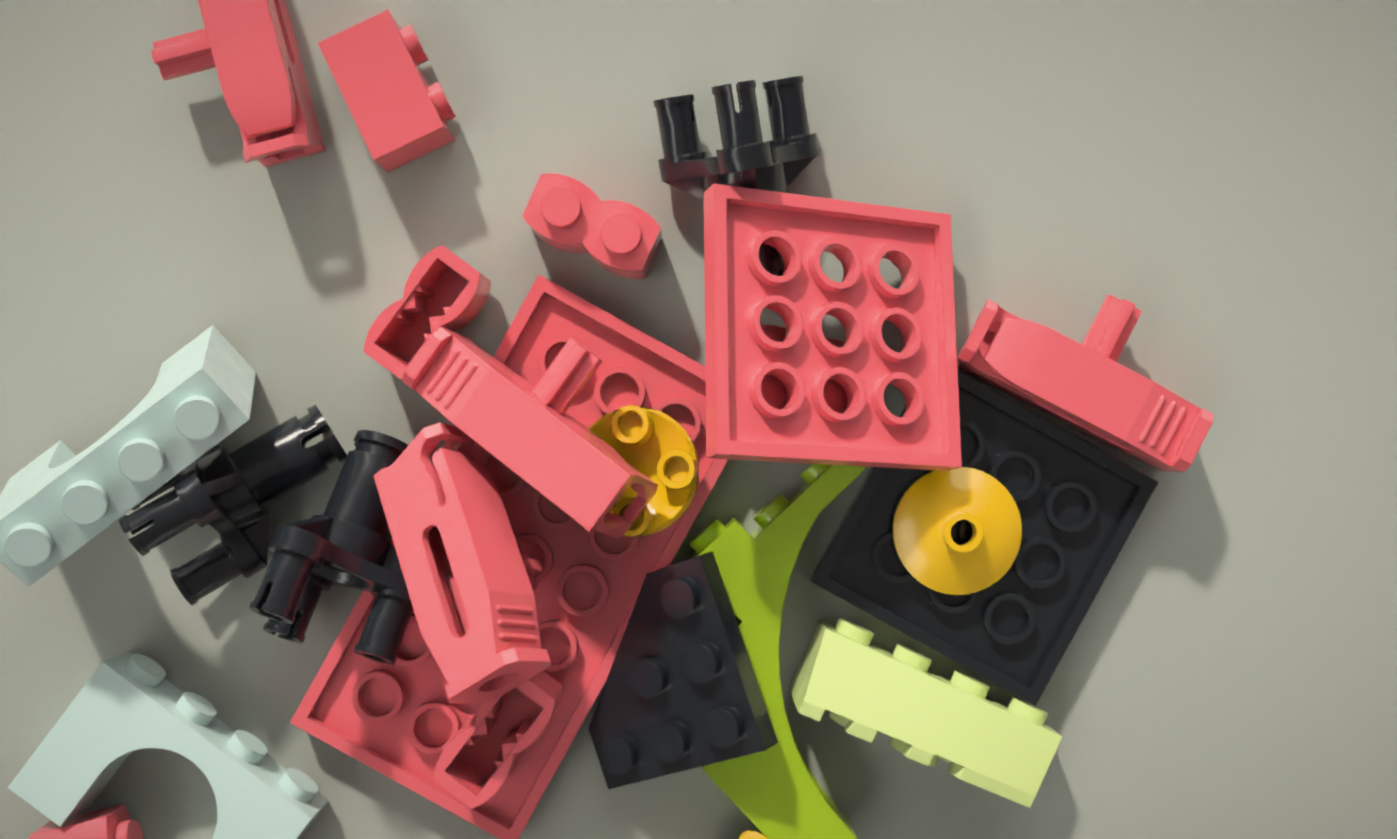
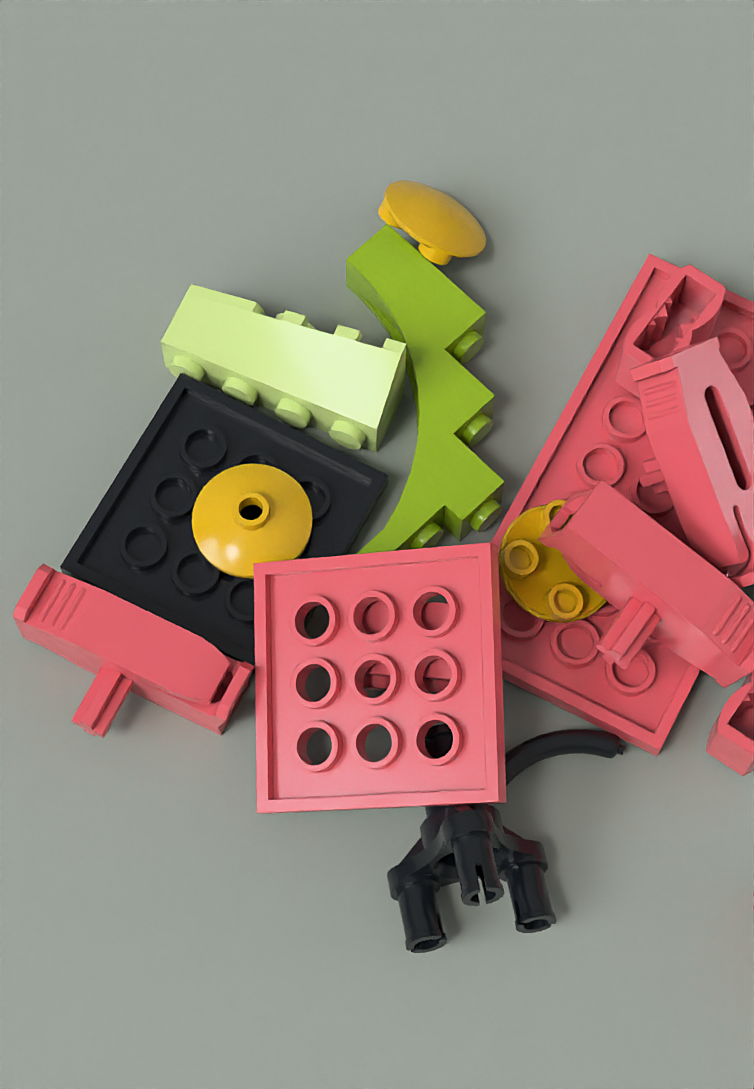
camera: 175 degrees right, 20 degrees down
(578, 222) = (624, 801): coral brick -> none
(644, 291) = (560, 743): none -> black piece
(679, 682) = (508, 382): black plate -> none

